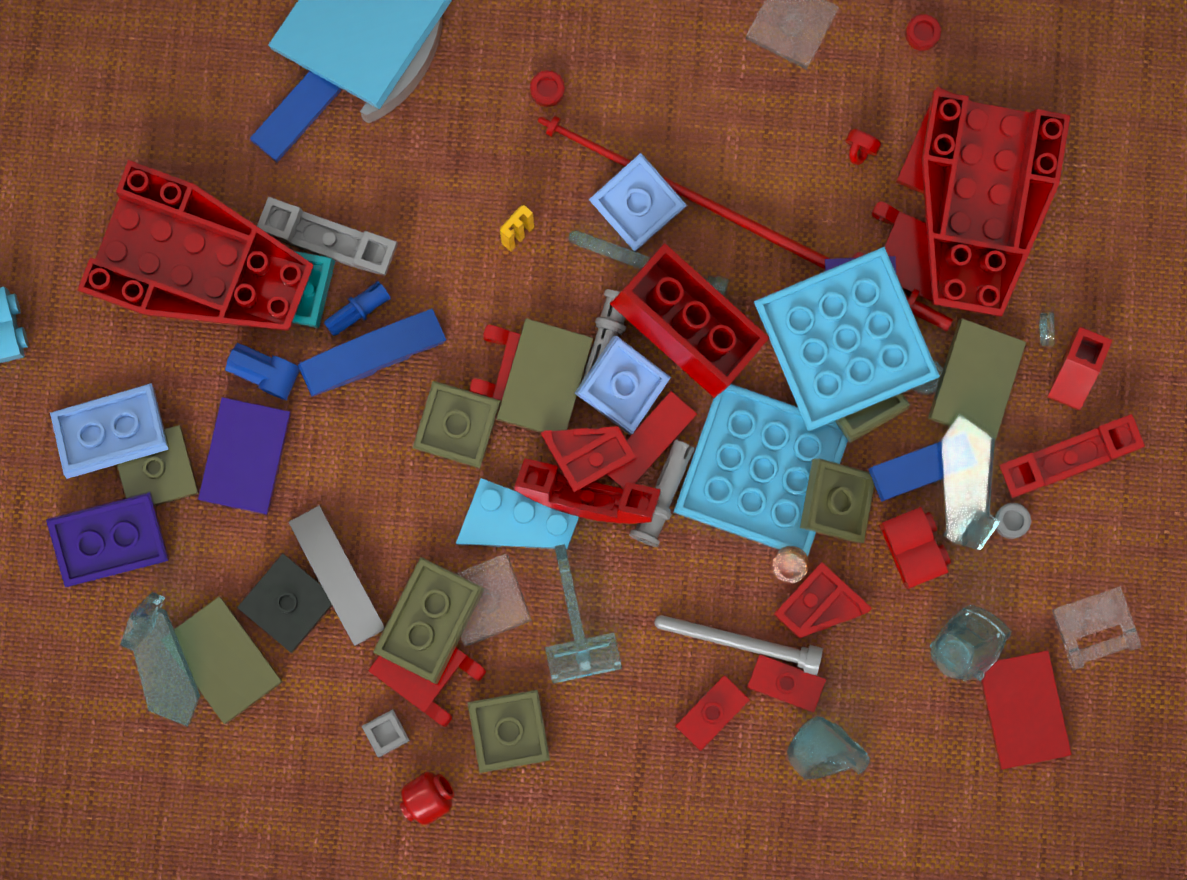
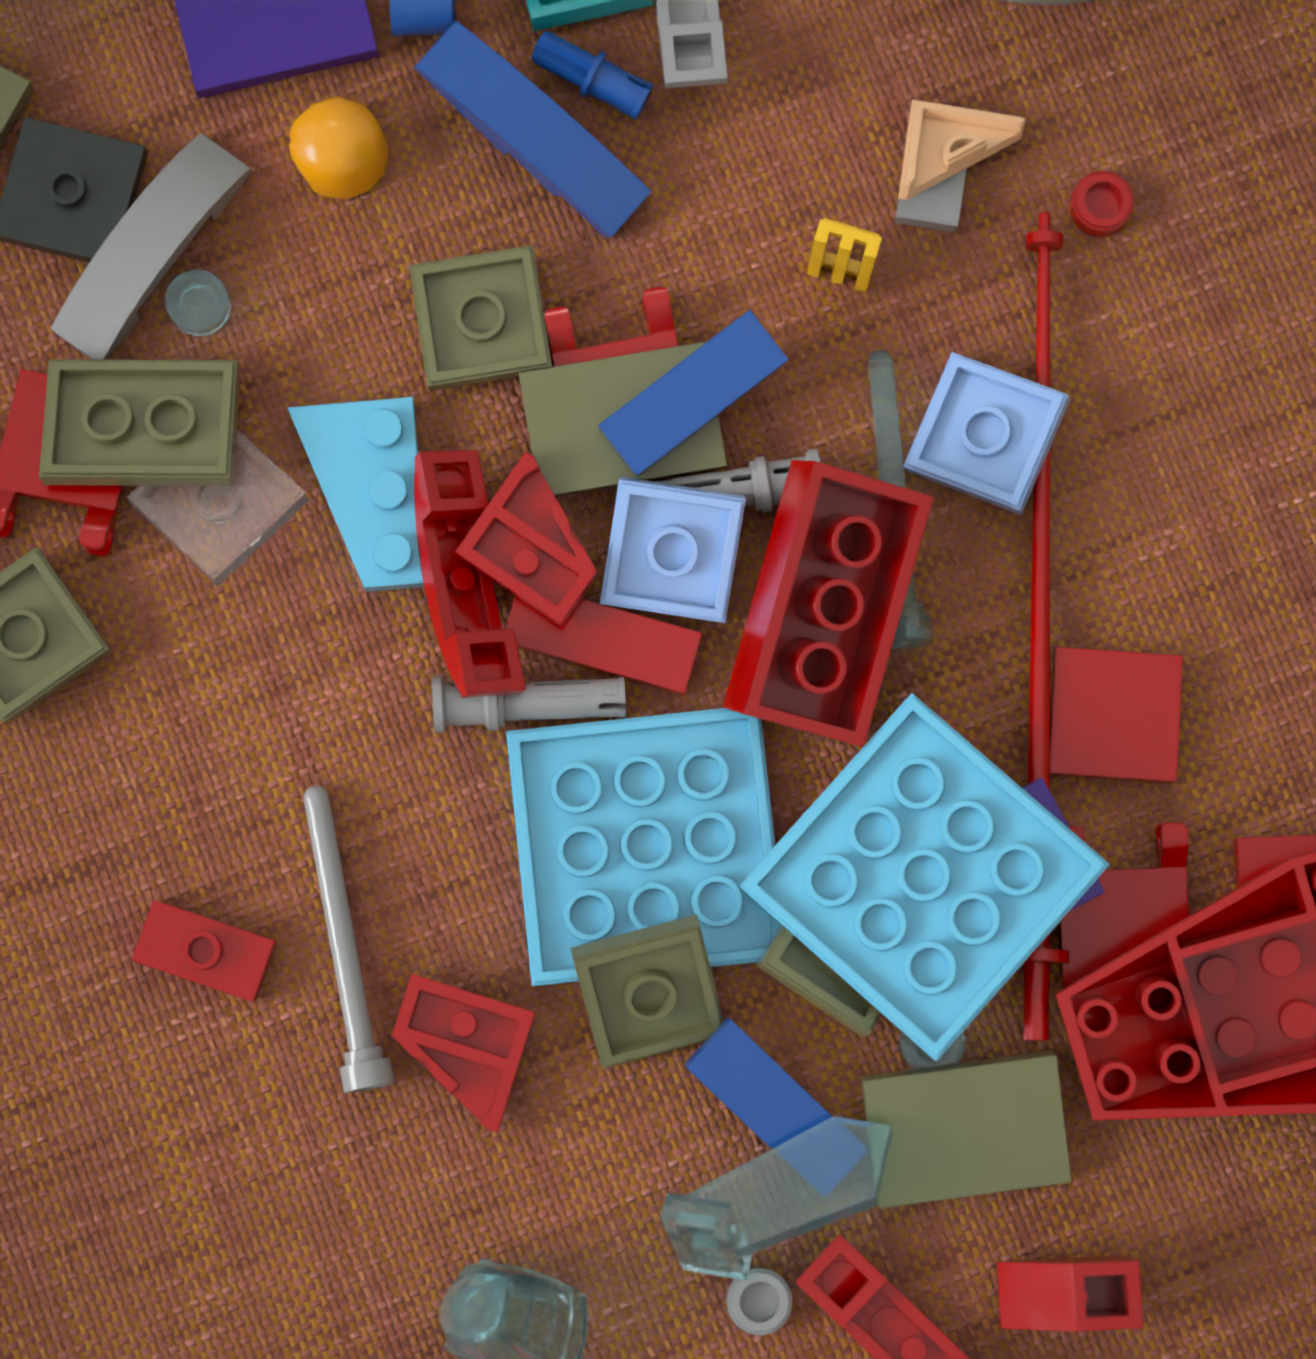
camera: 60 degrees right, 0 degrees up
(331, 455) = (339, 148): none -> light orange hair
(377, 564) = (198, 302): none -> clear light blue tile
(479, 148) = (948, 140): none -> light nougat tile
(501, 170) = (935, 207): none -> light grey tile
(550, 336) = (693, 393): none -> blue tile
(581, 656) = (199, 692): clear light blue piece -> none
(786, 683) = (308, 1049): red plate -> none
(790, 564) = (508, 963): clear orange tile -> none
(808, 208) = (1115, 715): none -> red tile
(824, 750) = (221, 1160): clear light blue helmet -> none
(864, 142) = (1272, 752): red tile -> none
(914, 547) = (633, 1157): red brick -> none
(1047, 329) = (1110, 1207): clear light blue tile -> none

